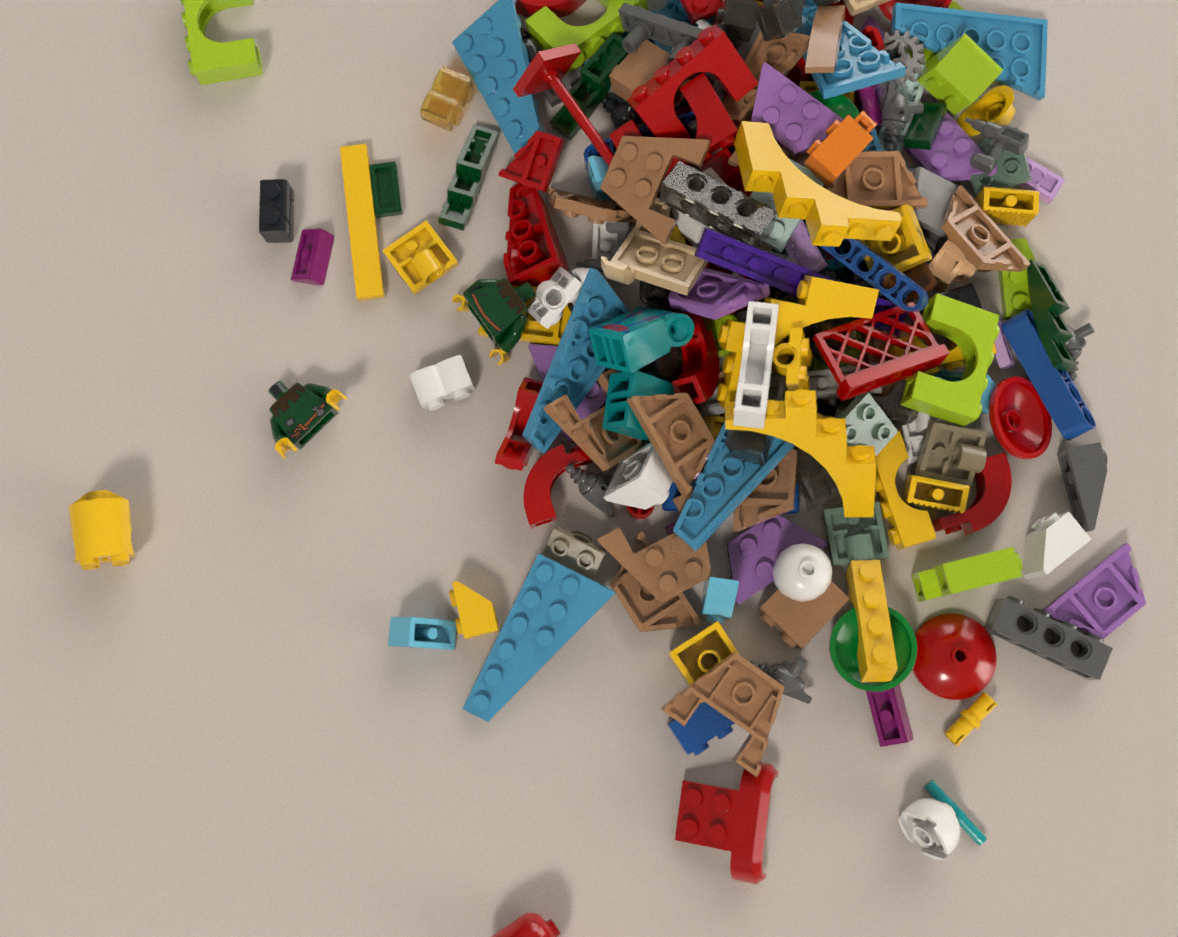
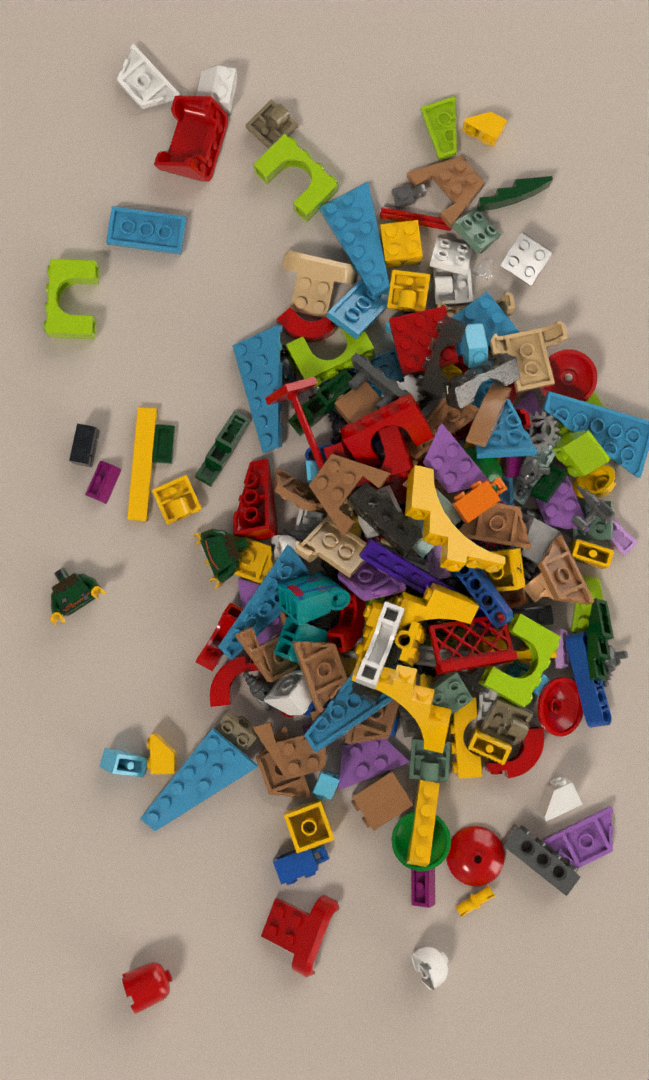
camera: 10 degrees right, 5 degrees up
(442, 382) = (172, 593): white brick -> none
(447, 98) = (220, 388): clear yellow brick -> none
(535, 162) = (270, 452): red wing -> none
(553, 297) = (260, 555): white plate -> none
(741, 695) = (323, 854): medium nougat wing -> none
(788, 676) = (357, 846): dark grey piece -> none
(802, 572) = (385, 780): white cylinder -> none
(964, 822) = (452, 962): teal piece -> none
(967, 574) = (492, 810): lime arch -> none
(1084, 478) = (595, 755): dark grey slope -> none

